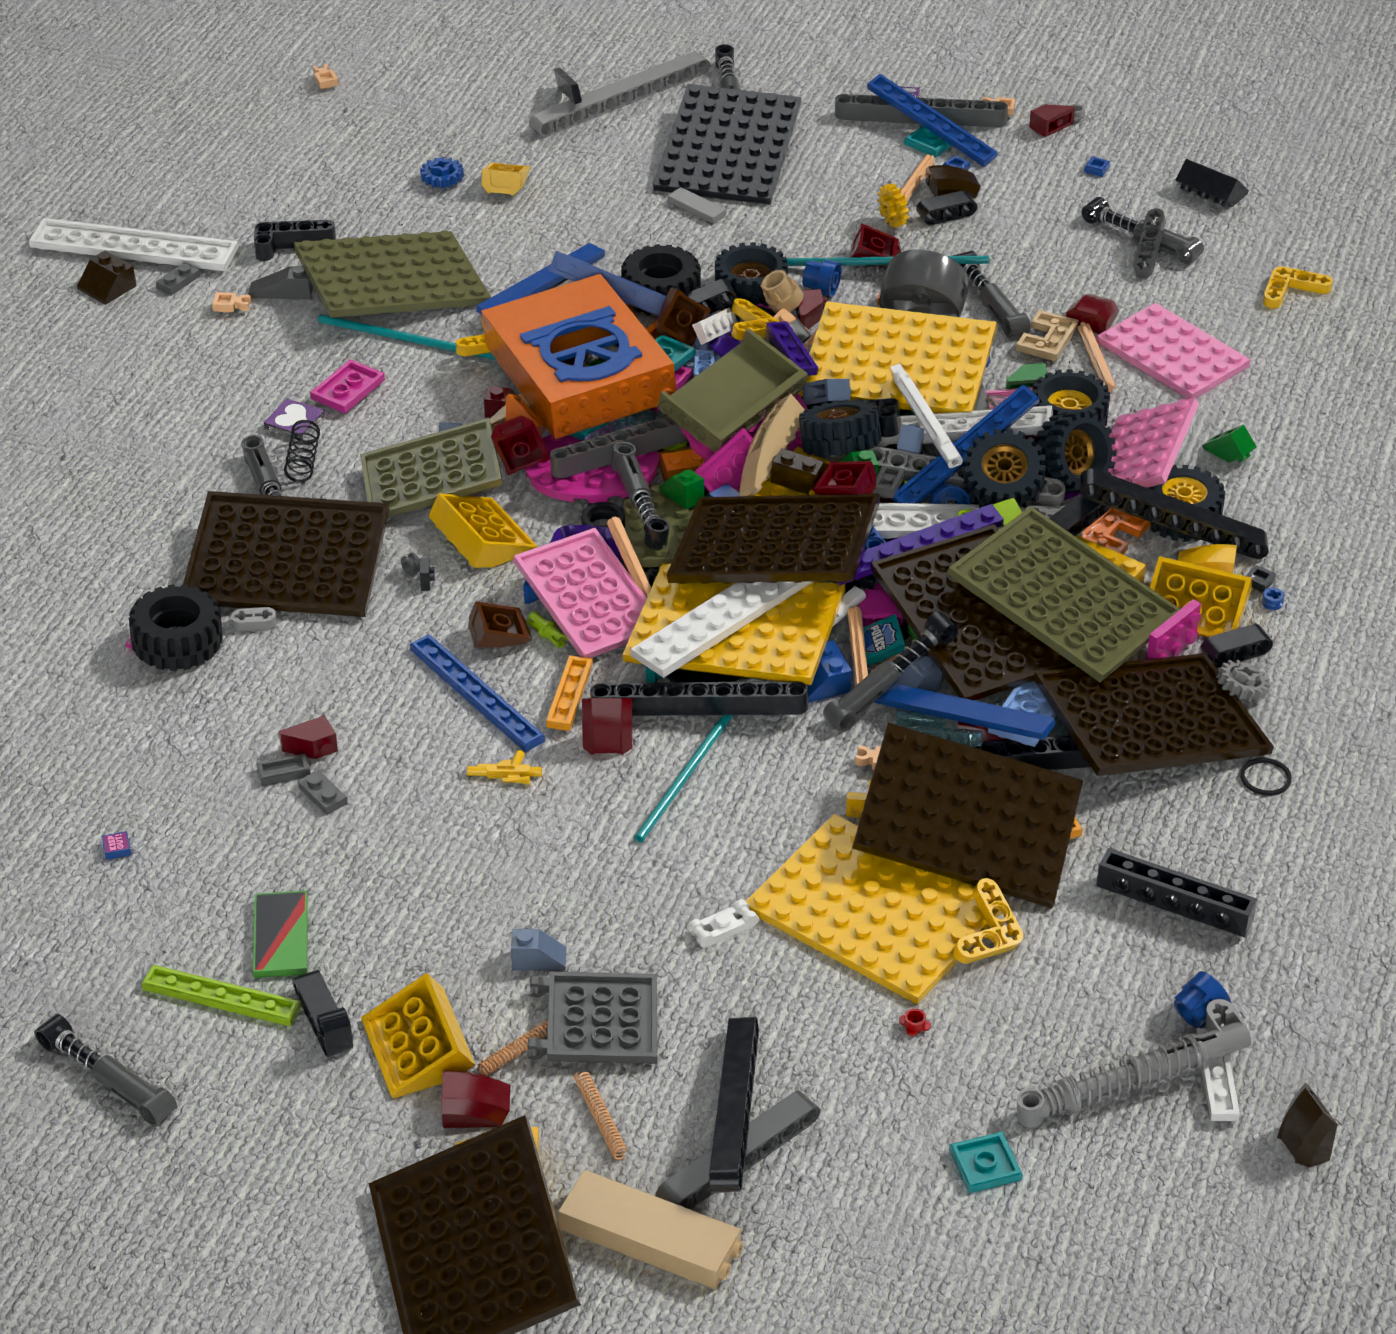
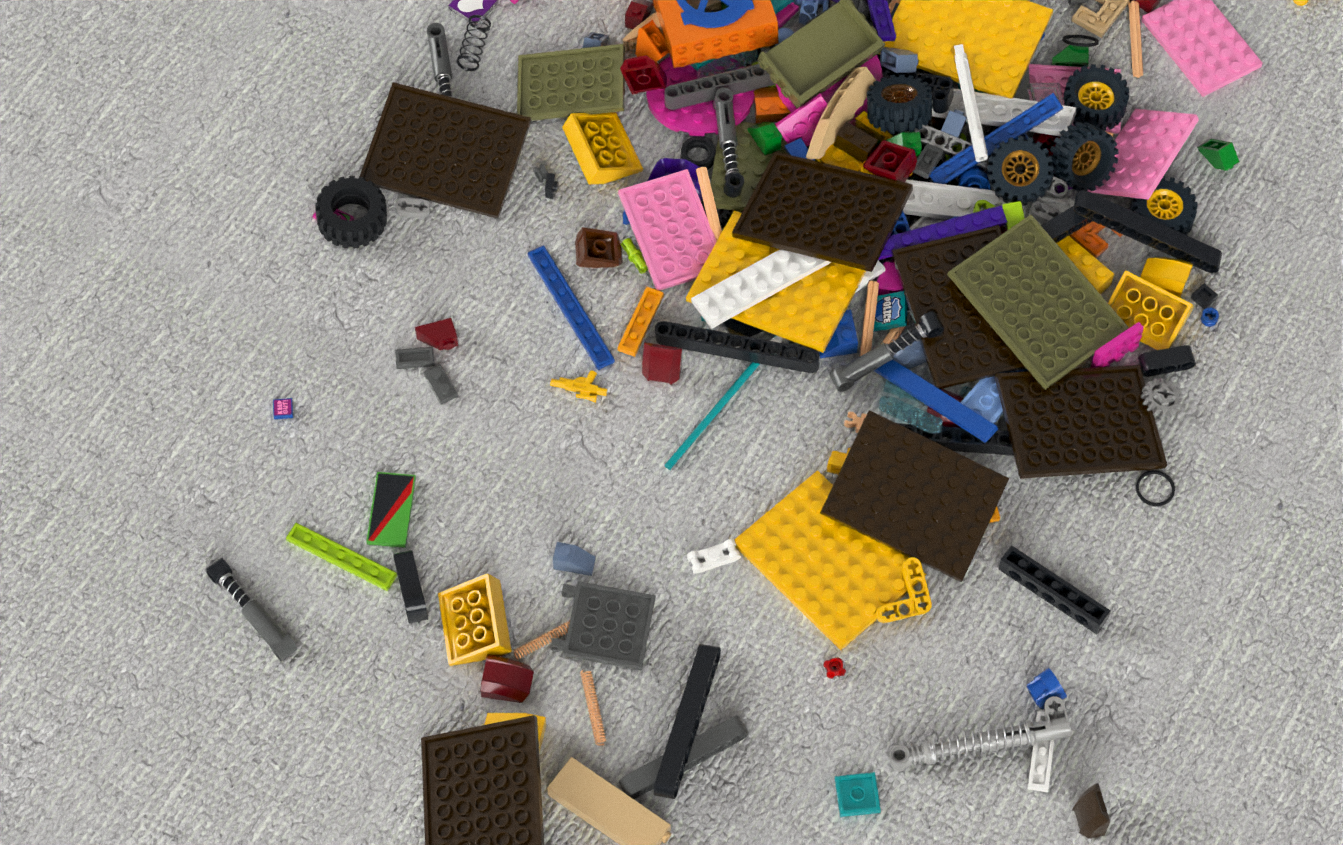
camera: 10 degrees right, 20 degrees up
(1046, 361) = (1080, 44): none -> black piece

